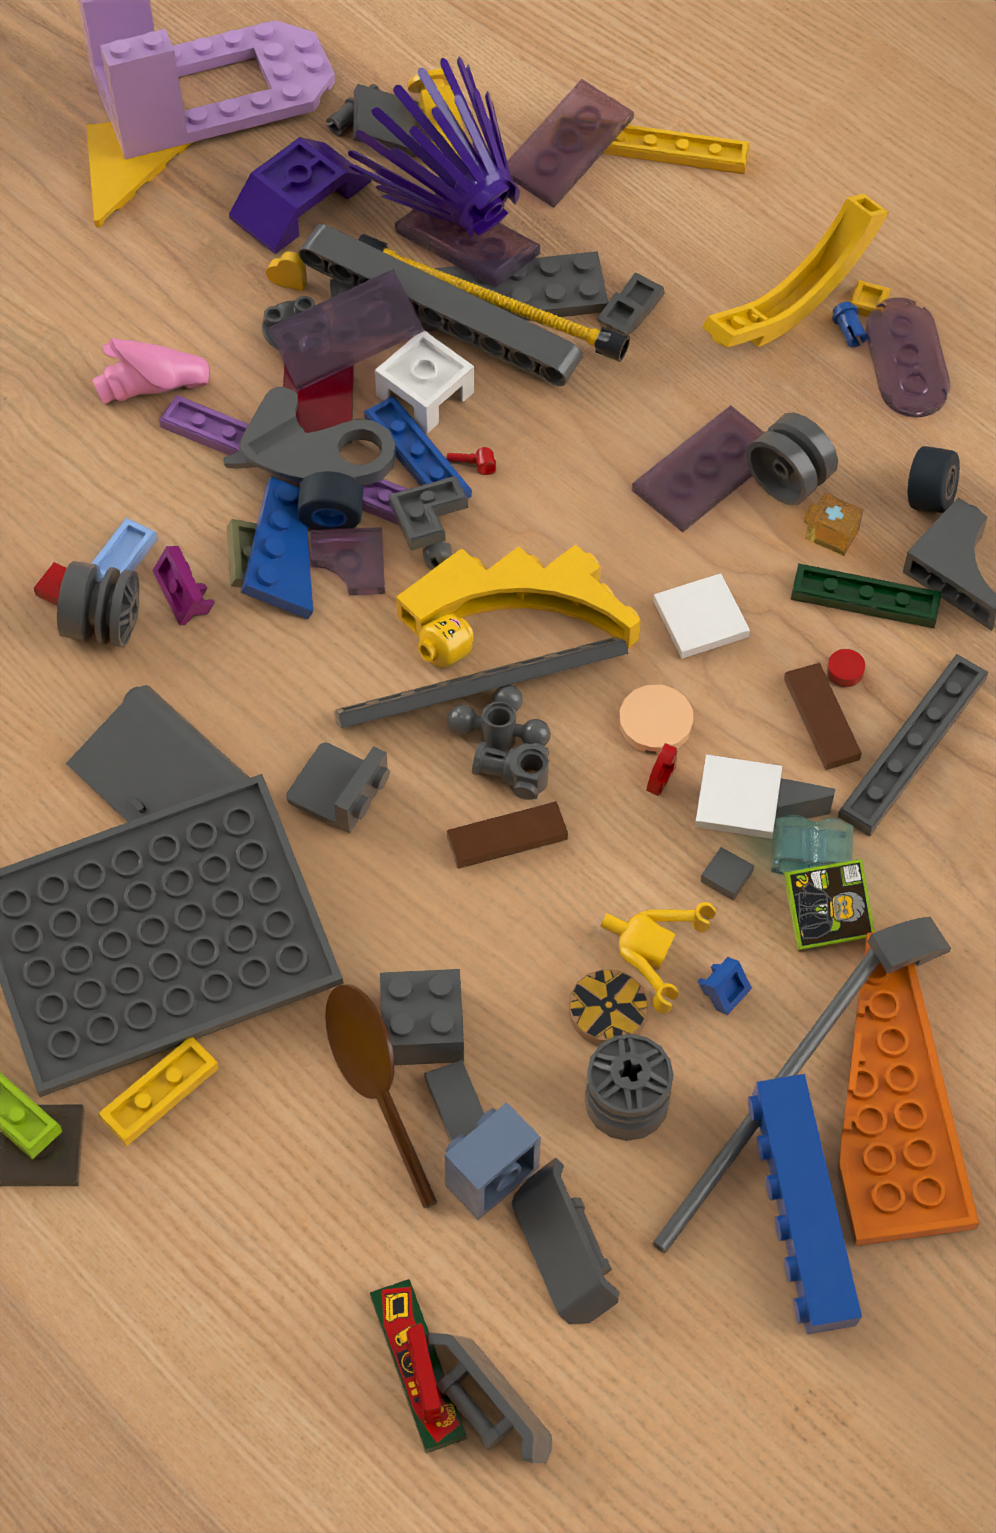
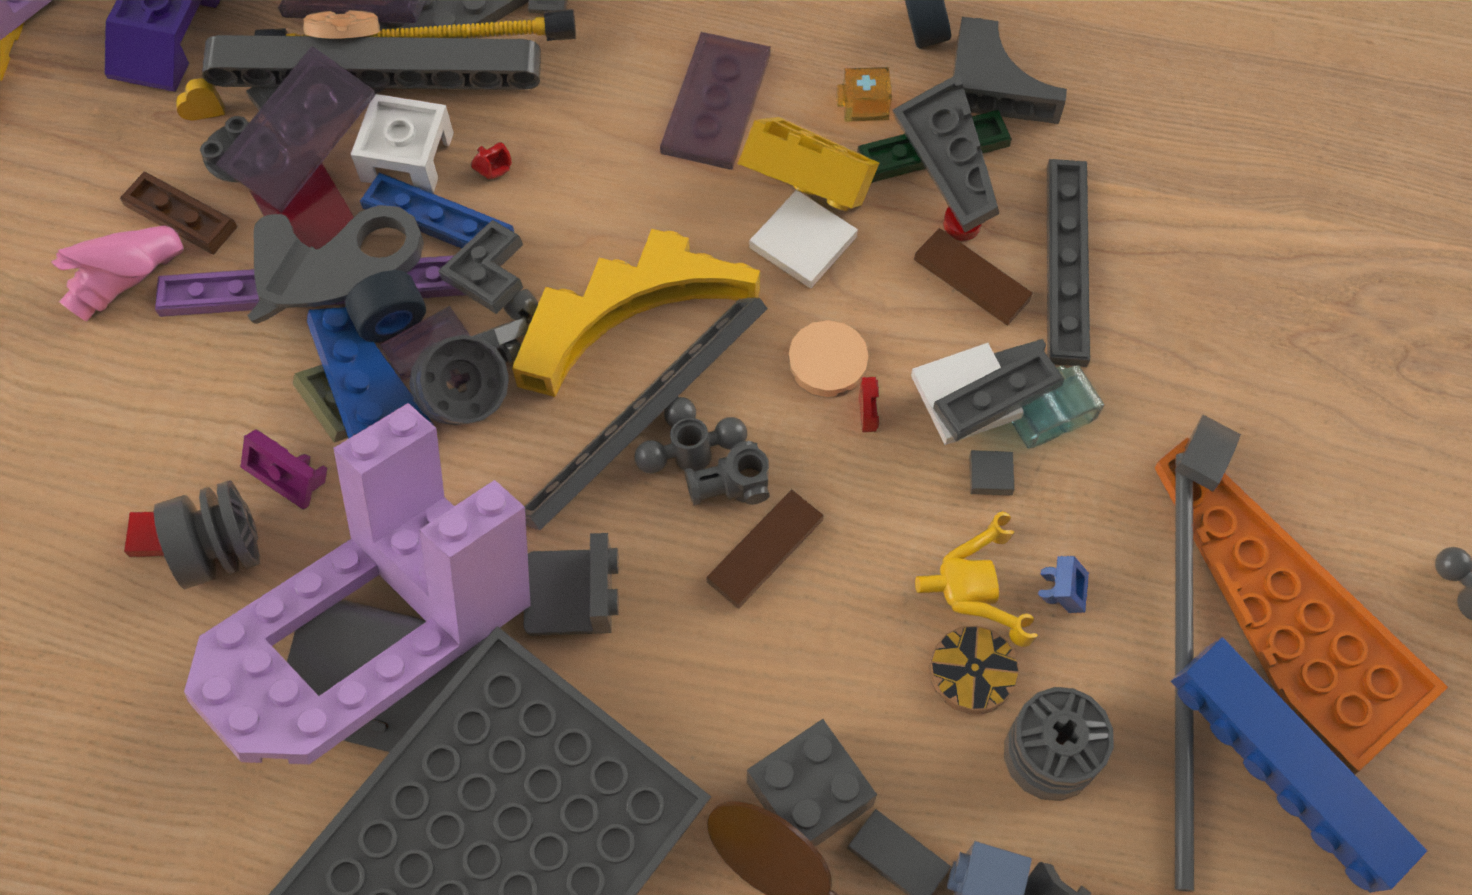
camera: 30 degrees left, 5 degrees up
(126, 547) = (198, 461): light blue tile -> none
(221, 353) = (178, 210): none -> reddish brown tile
(253, 698) = (449, 562): none -> lavender bracket
(363, 569) = (482, 386): none -> dark grey wheel
(404, 572) = (504, 338): none -> dark grey tile
(431, 263) = (341, 26): none -> light nougat tile
(445, 640) = (584, 386): yellow head -> none
(483, 459) = (504, 189): red hand -> none
(487, 430) = (492, 161): none -> red piece
(739, 553) = (808, 162): none -> yellow wedge
(760, 807) = (998, 394): none -> dark grey tile
(792, 458) = (796, 51): dark grey wheel -> none
(829, 904) = (1107, 452): tile -> none
(868, 598) = (949, 148): none -> dark grey wing

